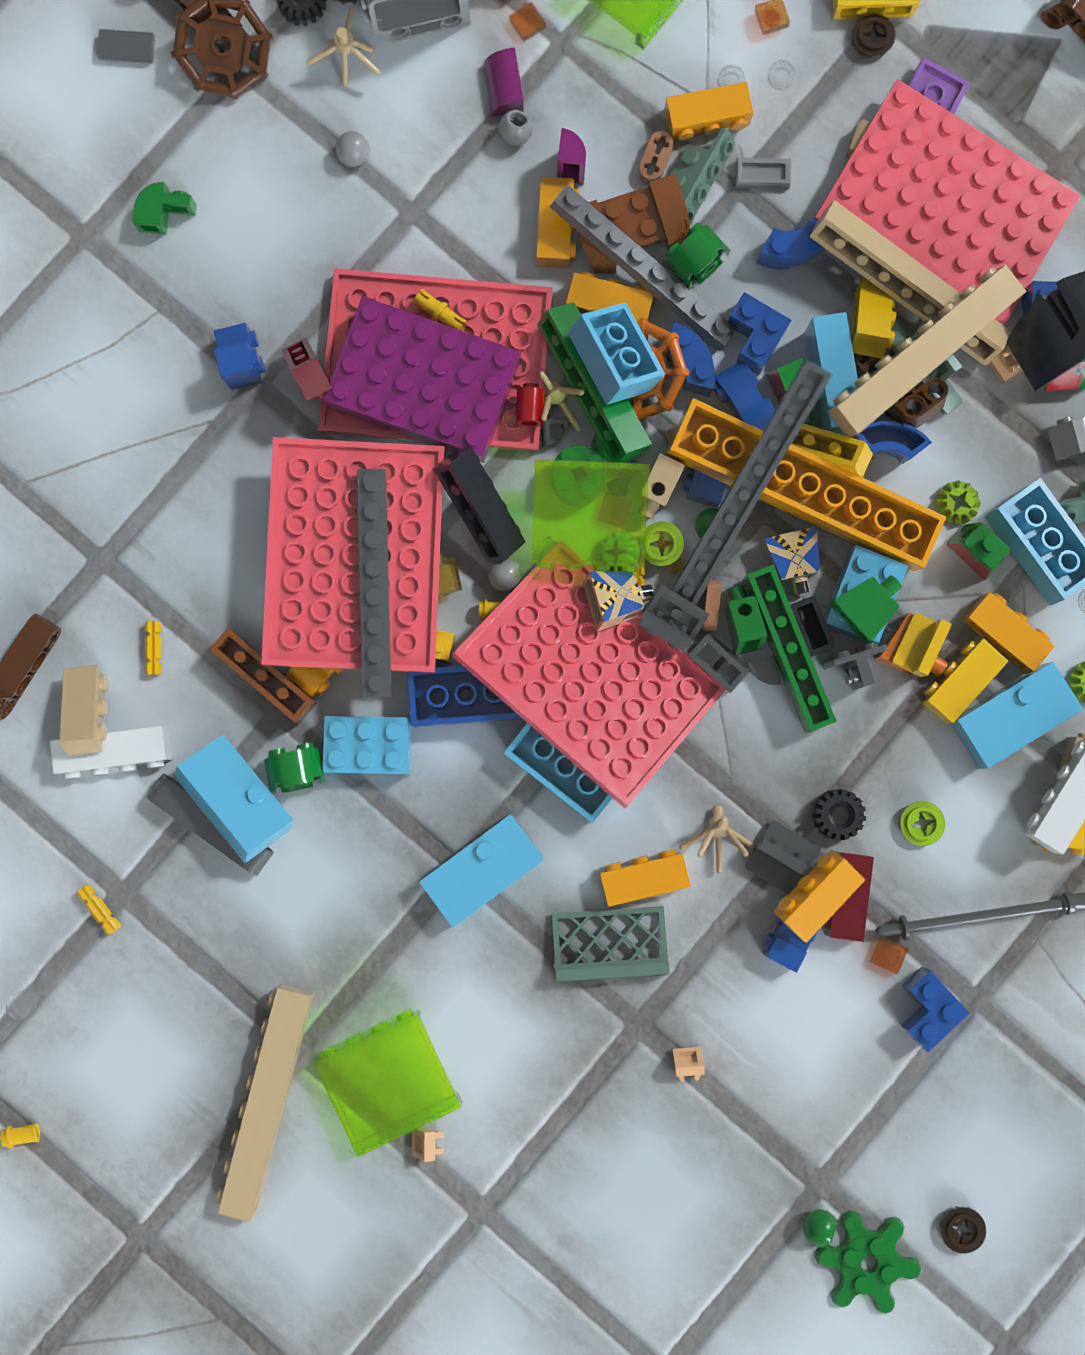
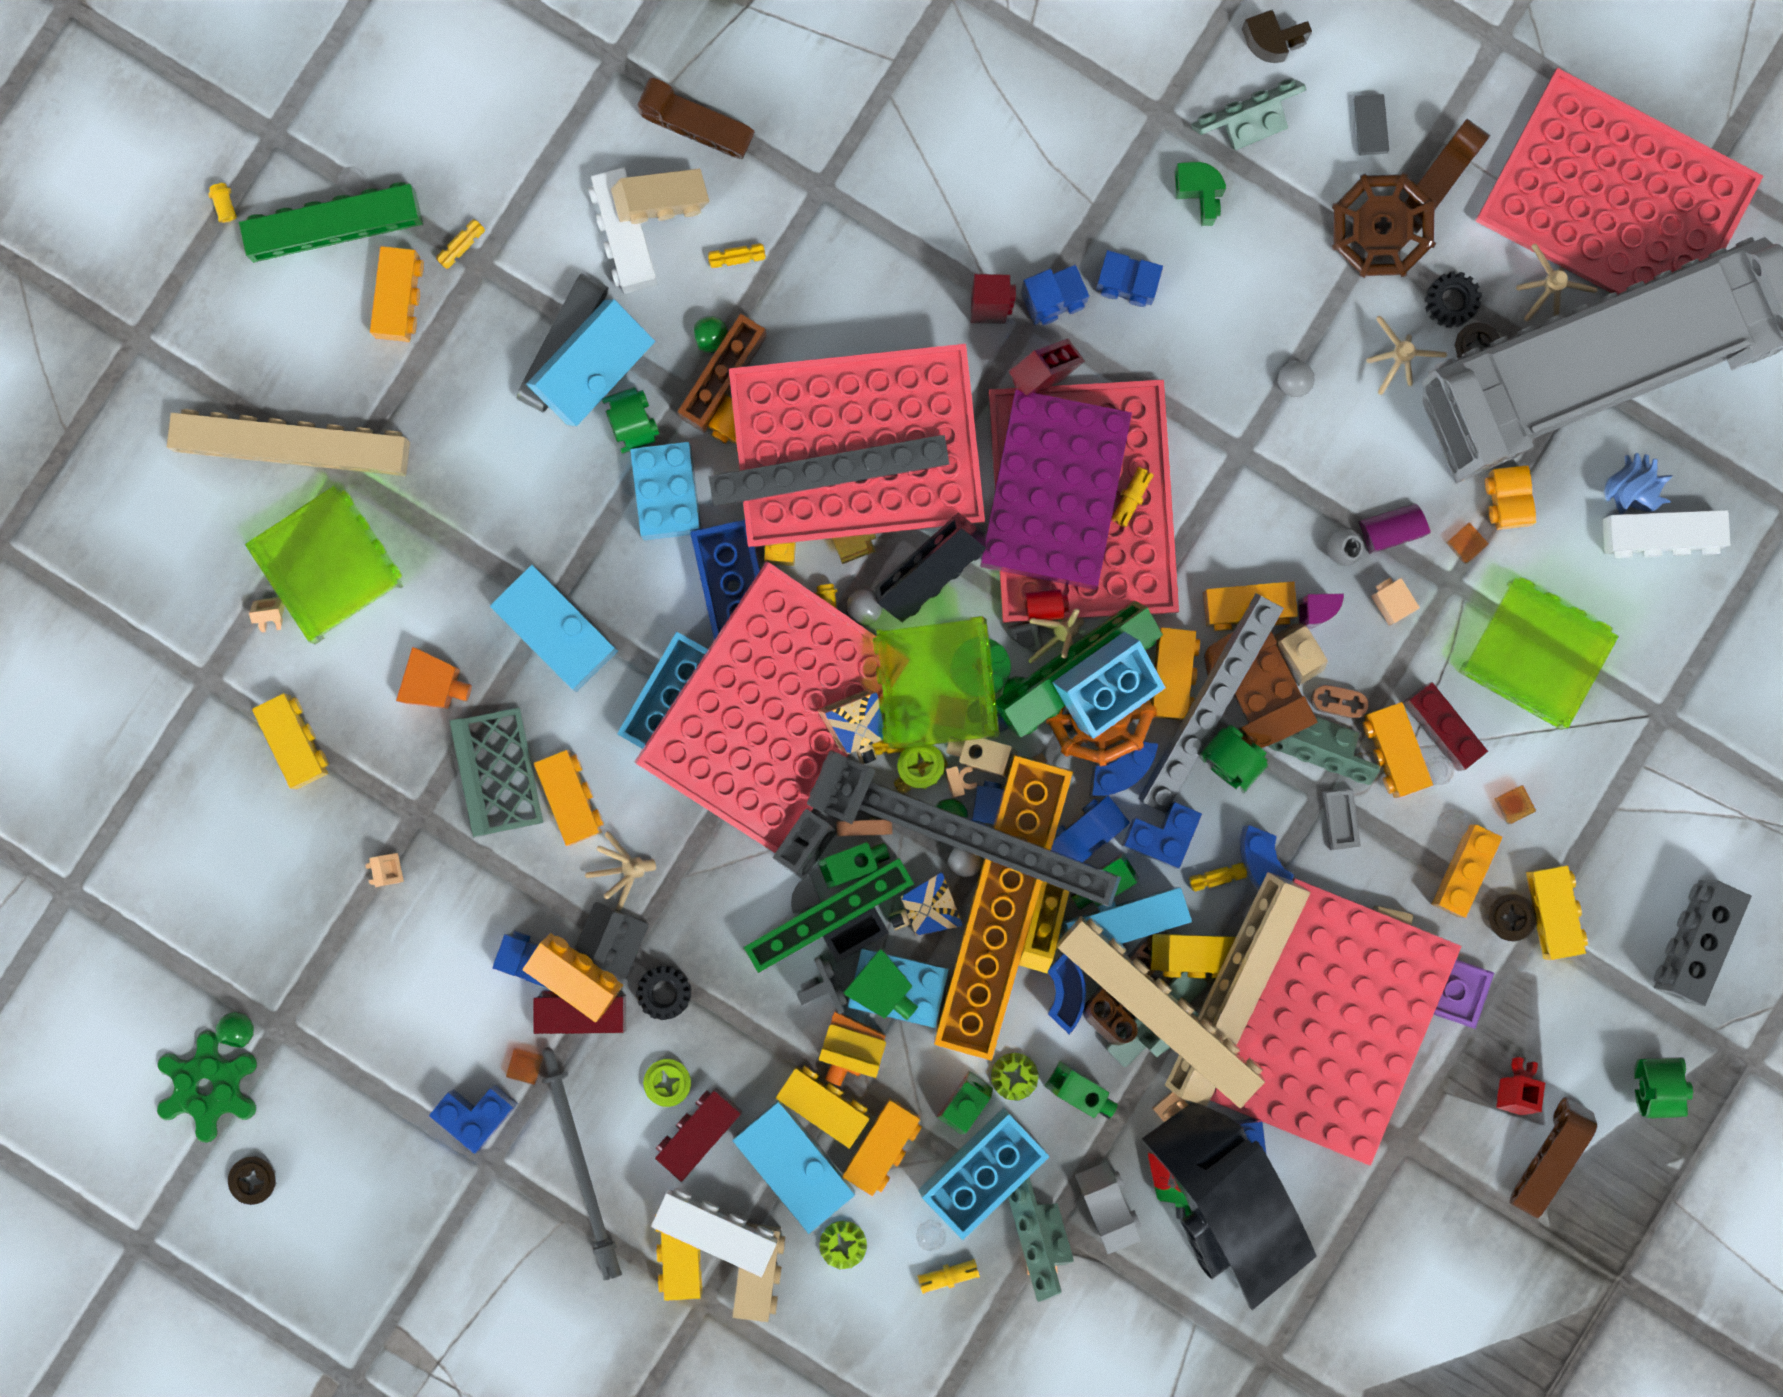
camera: 80 degrees right, 0 degrees up
(28, 125) = (1269, 41): none -> dark brown brick
(56, 1032) = (330, 222): none -> green brick
(101, 150) = (1252, 118): none -> sand green bracket
(137, 977) = (396, 294): none -> light orange brick
(223, 682) = (710, 333): none -> green piece
(233, 410) = (992, 298): none -> dark red brick
(234, 286) = (1129, 279): none -> blue brick
(515, 994) = (431, 682): none -> orange torso
(552, 1137) = (291, 740): none -> yellow brick
(571, 92) = (1394, 600): none -> light nougat brick
(605, 180) = (1301, 652): none -> tan torso
(681, 515) = (956, 782): none -> light nougat tile
(693, 64) = (1445, 726): none -> dark red brick
(758, 518) = (964, 863): none -> light grey piece
(800, 291) = (1217, 877): none -> yellow axle
(827, 66) = (1466, 871): none -> light orange brick
(974, 801) = (697, 1133): none -> dark red brick
(981, 443) = (1074, 1088): none -> green torso
(1033, 50) = (1520, 1092): none -> red brick

